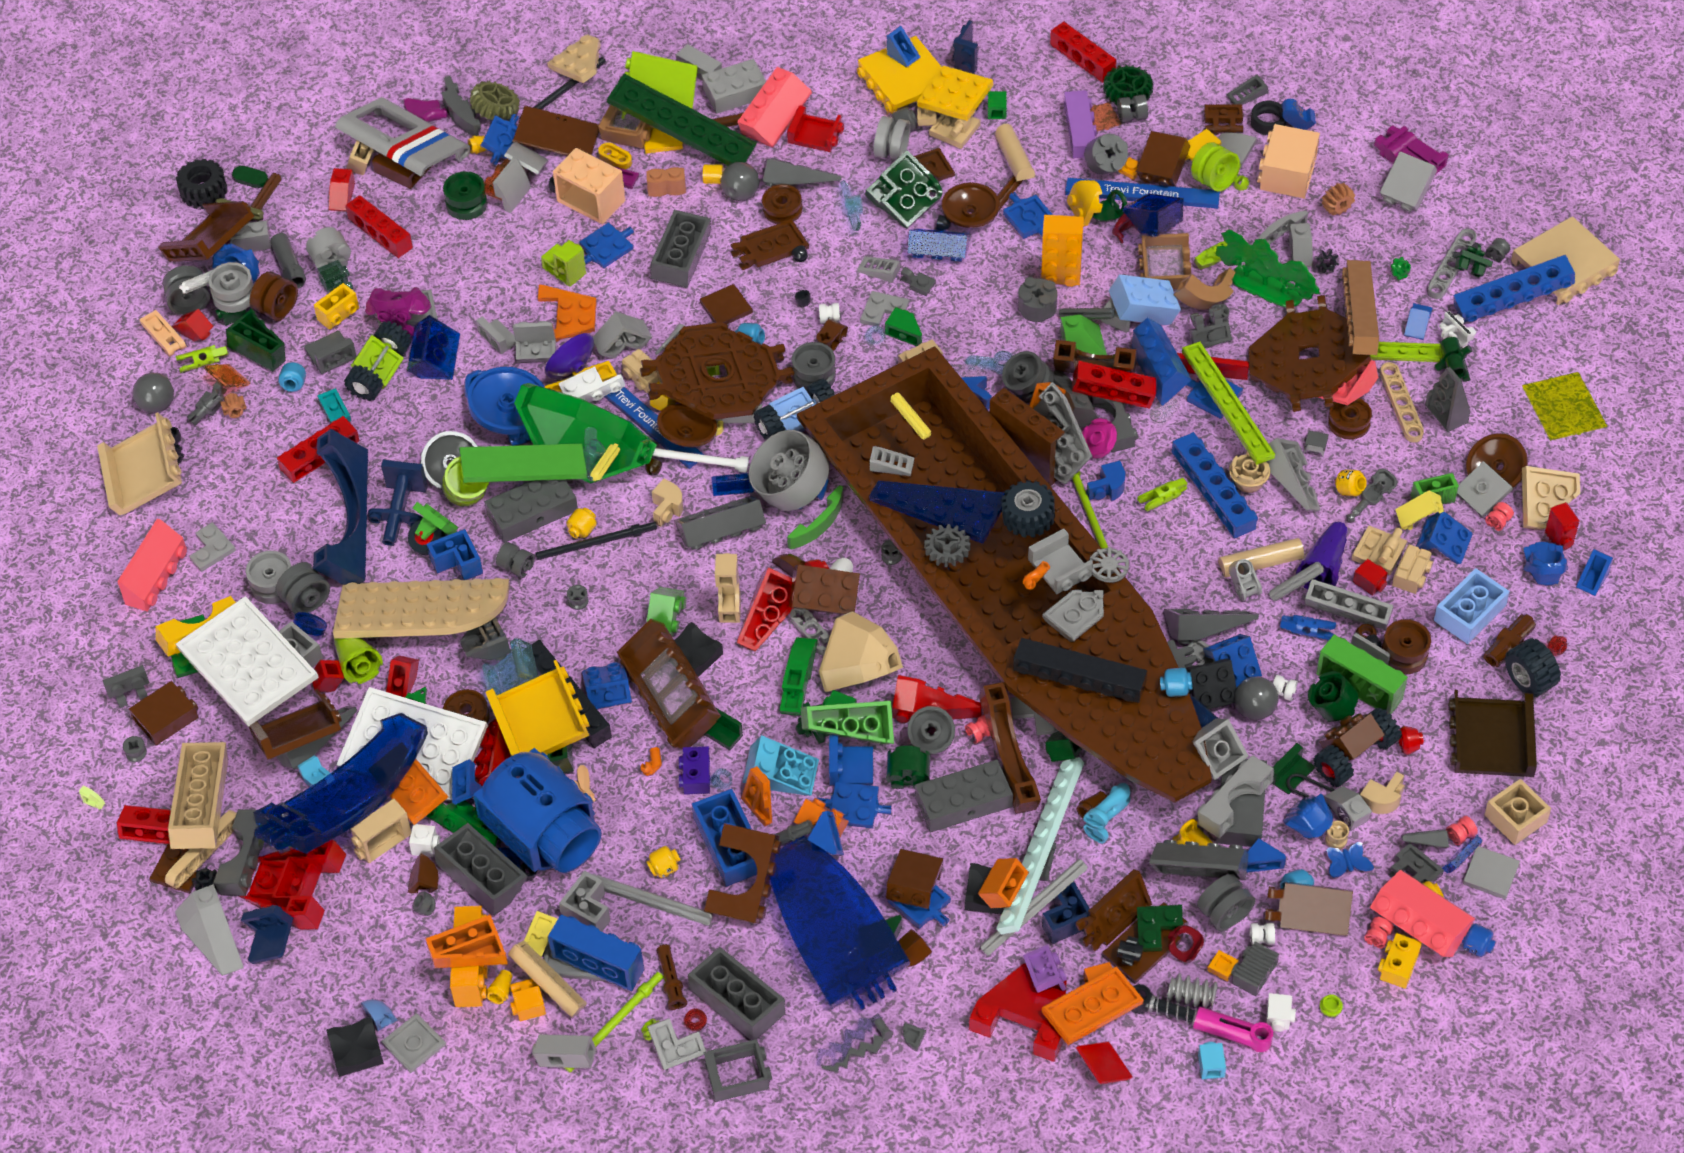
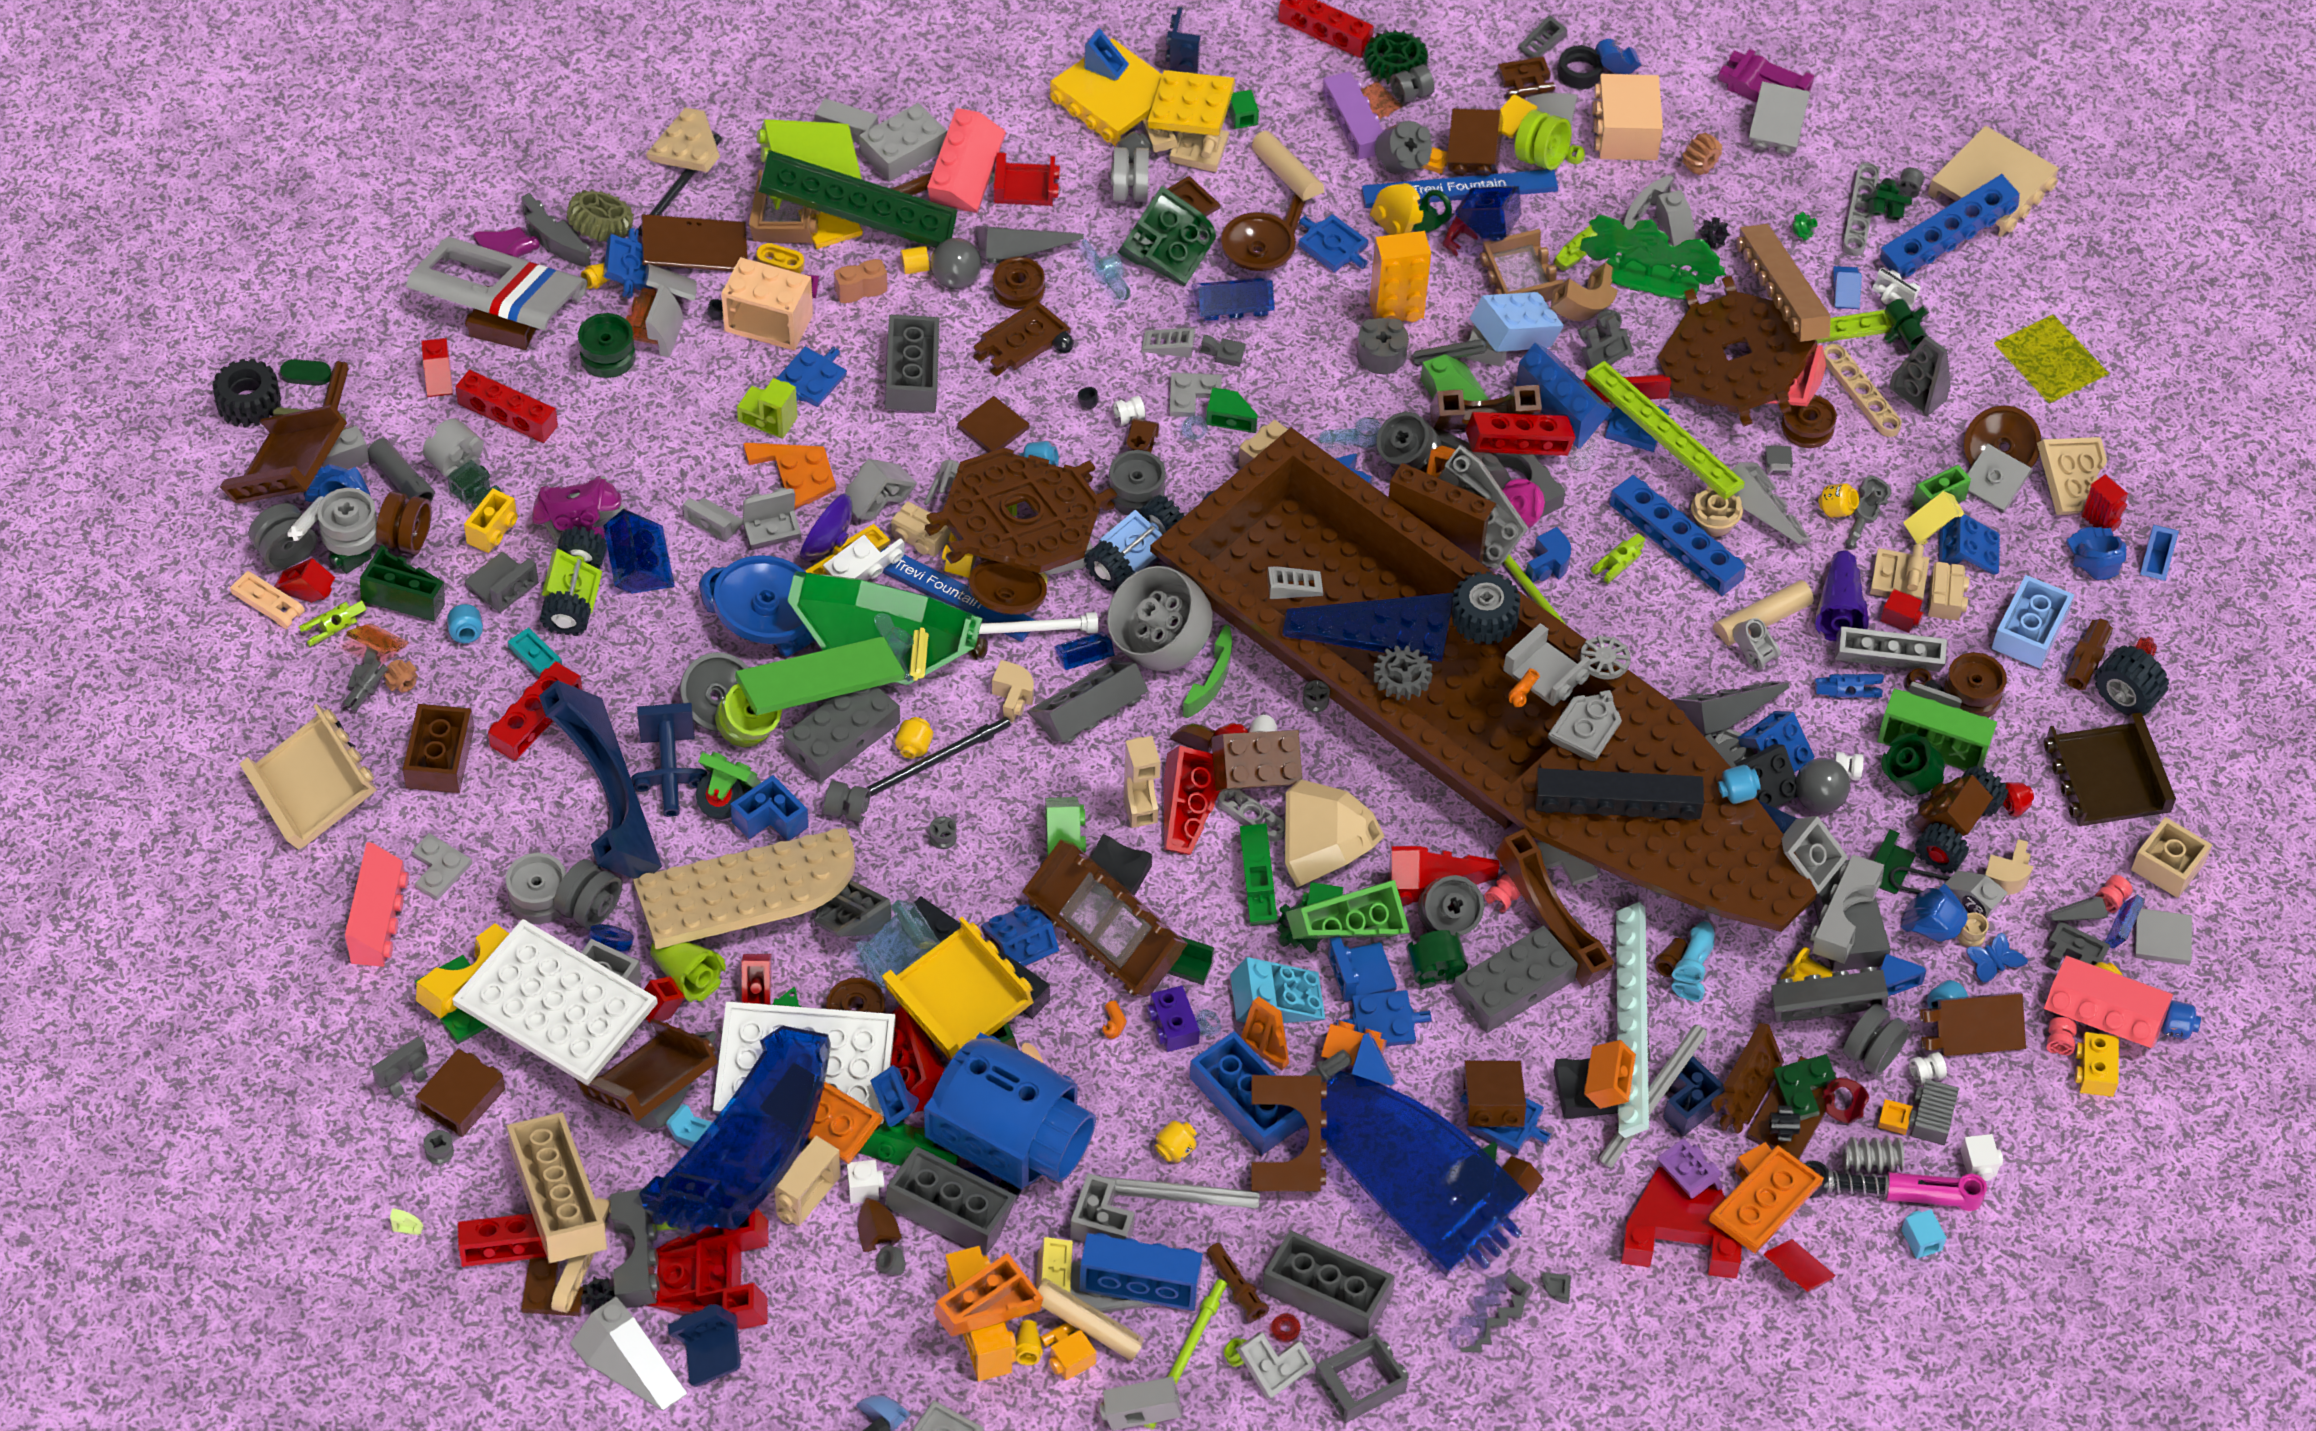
camera: 20 degrees left, 0 degrees up
(153, 392) = (287, 680): dark grey piece -> none
(239, 462) = (438, 748): none -> reddish brown brick
(360, 158) = (447, 320): tan brick -> none
(910, 416) = (1296, 520): light yellow axle -> none
(942, 223) = (1228, 270): black hinge -> none
(1061, 747) = (1613, 893): dark green slope -> none
(1296, 581) = (1821, 633): light grey axle -> none
(1331, 1005) = (2036, 1136): lime plate -> none
(1499, 516) = (2025, 506): coral wheel -> none

